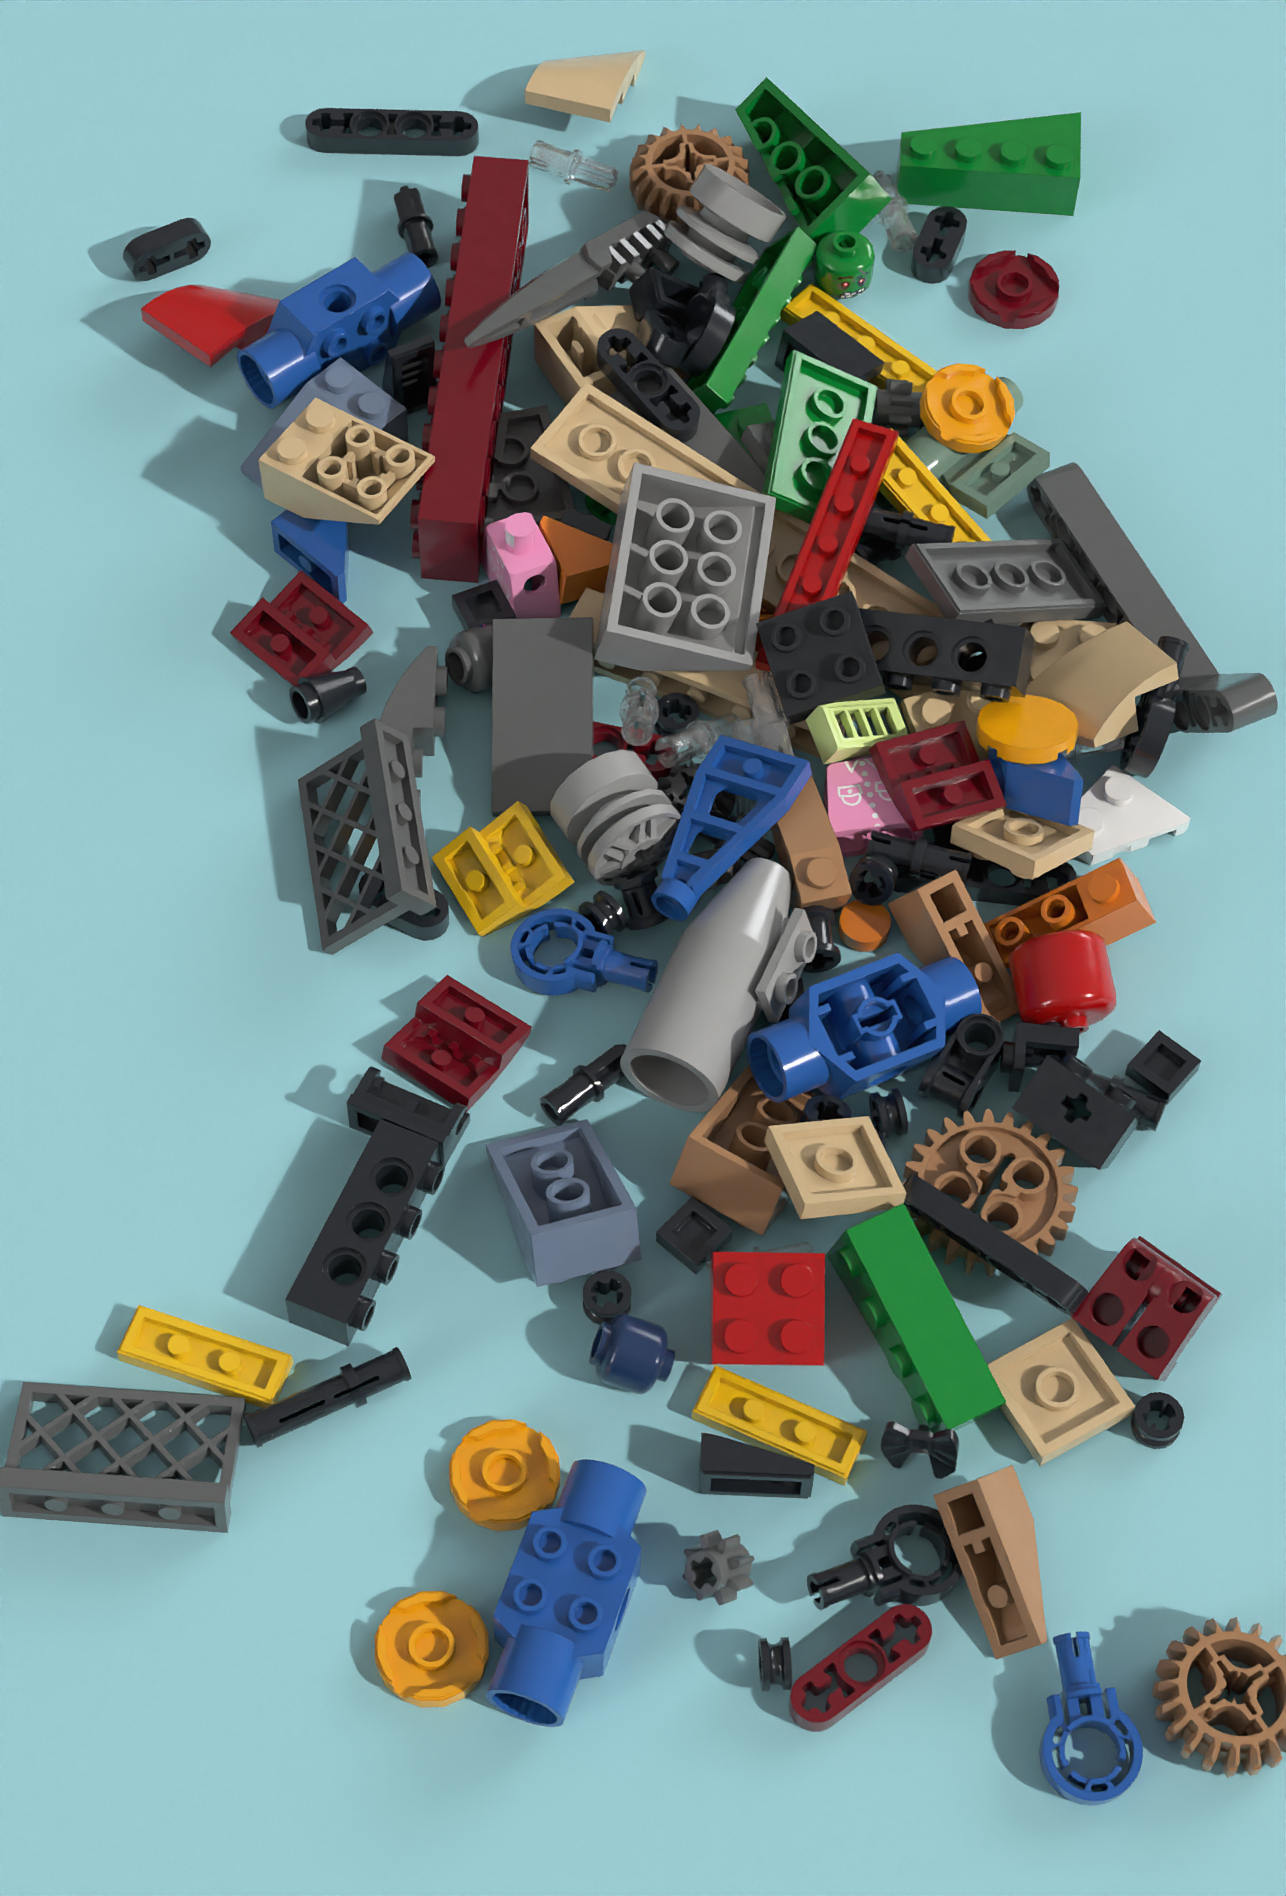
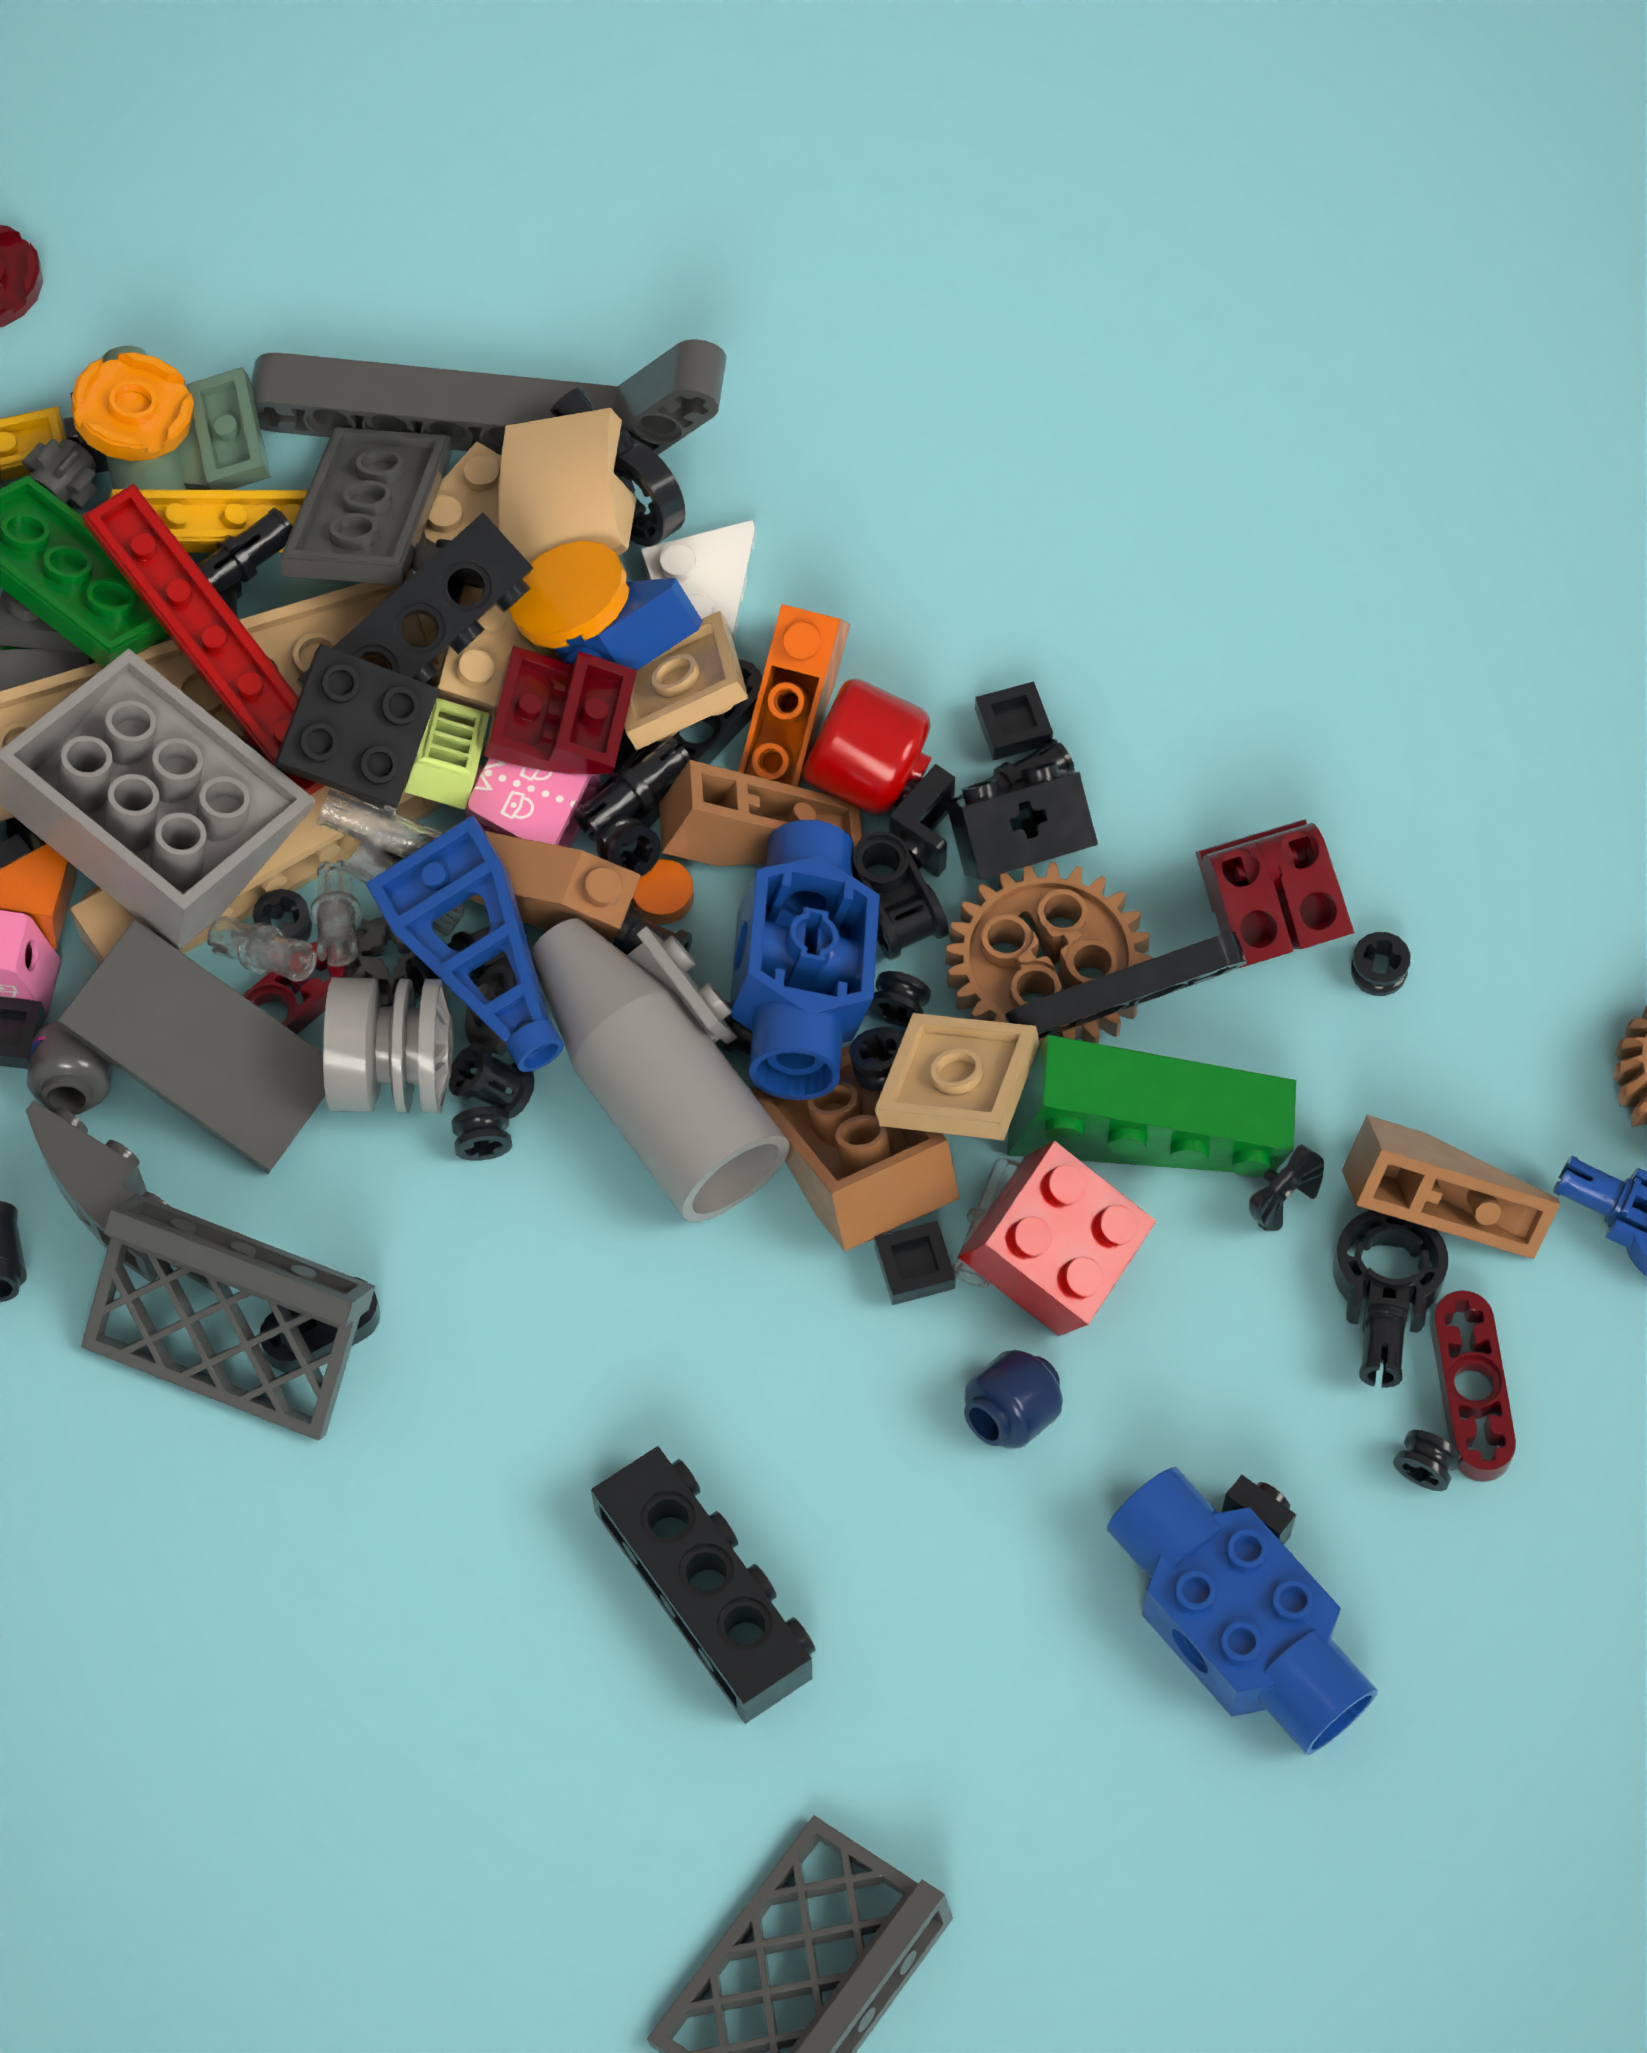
camera: 55 degrees left, 5 degrees up
(204, 1357) = (736, 1832): yellow tile -> none
(328, 1396) = (871, 1703): black pin -> none
(379, 1100) = (563, 1477): black hinge -> none
(432, 1649) = (1209, 1782): light orange tile -> none
(456, 1042) = (529, 1367): dark red slope -> none
(502, 870) = (351, 1199): yellow slope -> none
(504, 1474) = (1061, 1603): light orange tile -> none
(565, 1203) = (796, 1364): sand blue slope -> none
(584, 1086) = (669, 1265): black axle -> none
(587, 968) = (527, 1169): blue pin -> none
(603, 1283) = (938, 1370): black bush -> none
(656, 1567) = (1265, 1502): none -> black plate
(718, 1567) = (1305, 1469): dark grey gear -> none
(746, 1470) = (1198, 1375): black slope -> none
(779, 1424) = (1170, 1308): yellow tile -> none
(1059, 1391) = (1301, 1028): tan plate -> none

